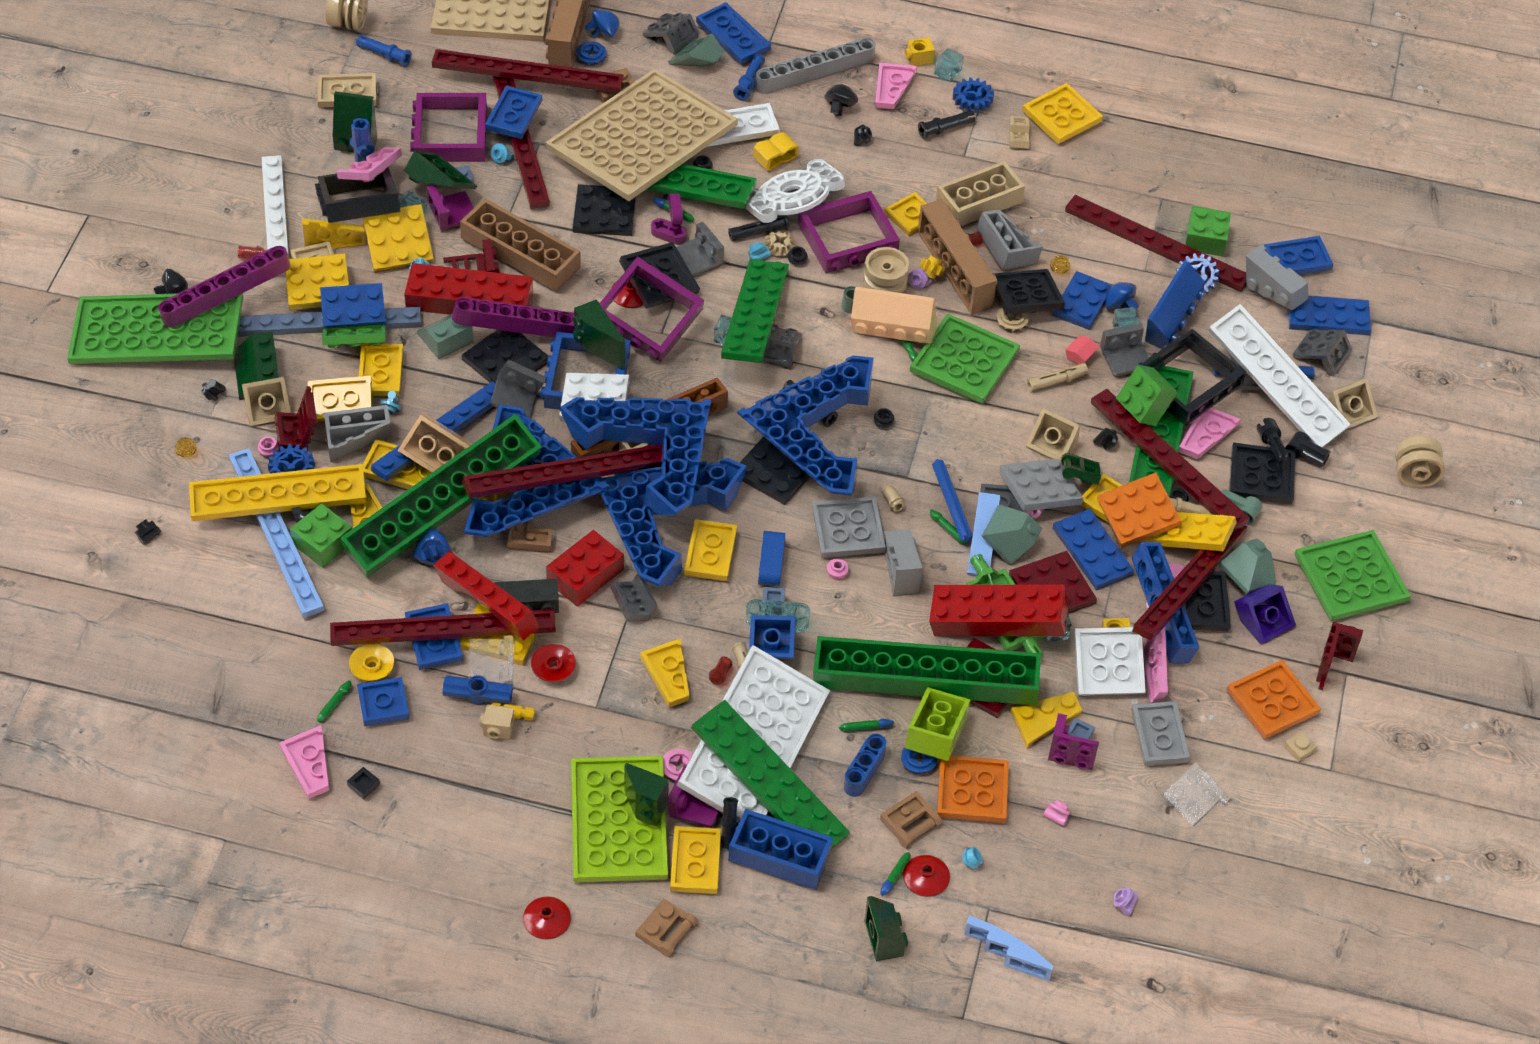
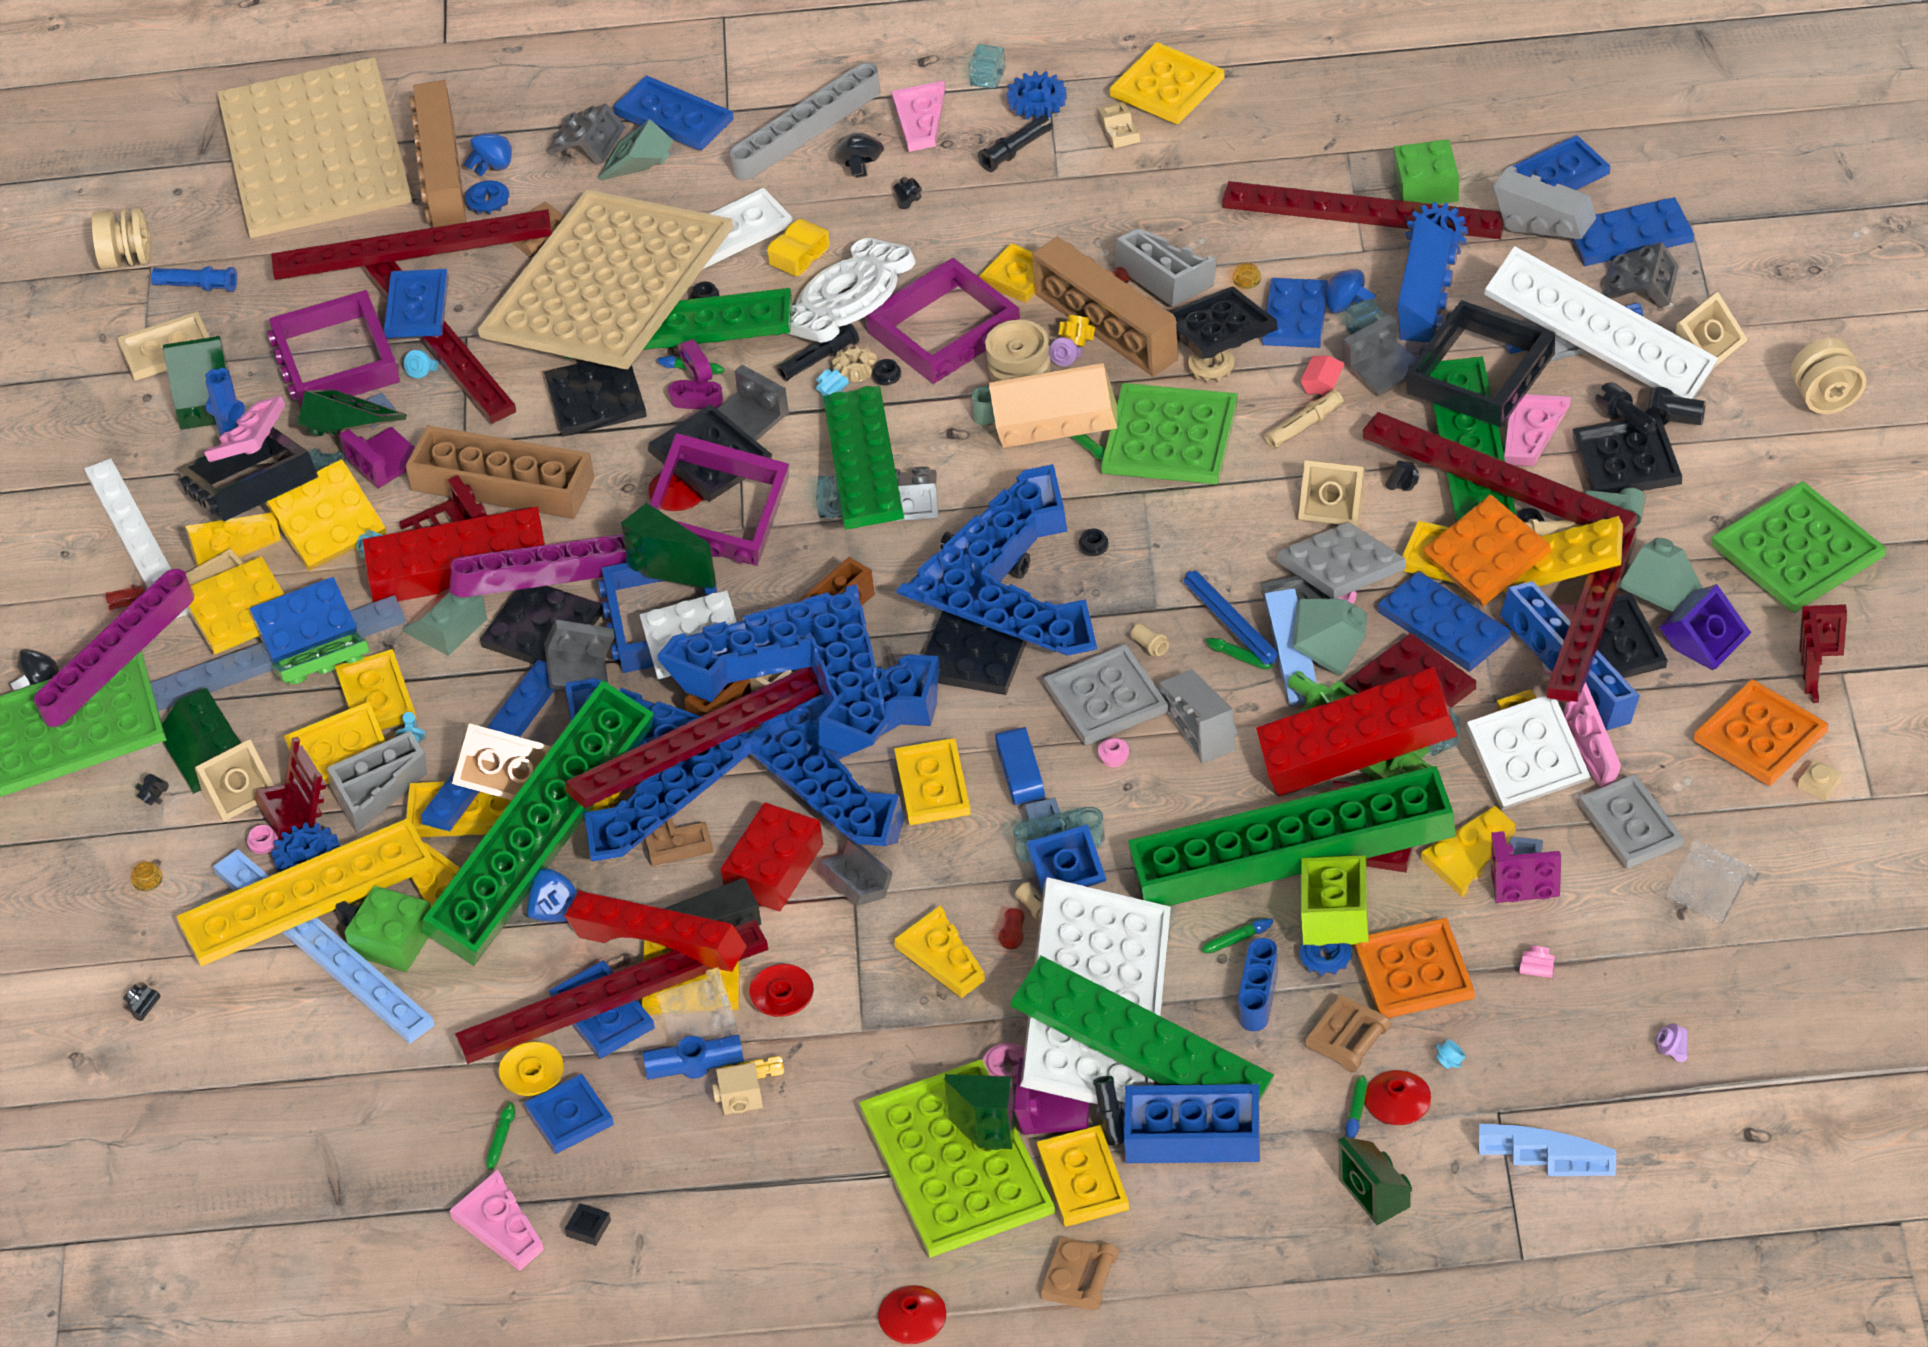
camera: 10 degrees left, 5 degrees down
(747, 81) = (720, 169): blue pin -> none
(920, 51) = (940, 61): yellow brick -> none
(982, 192) = (1105, 212): tan brick -> none
(1086, 470) = (1386, 522): dark green plate -> none
(1146, 395) = (1437, 401): bright green brick -> none

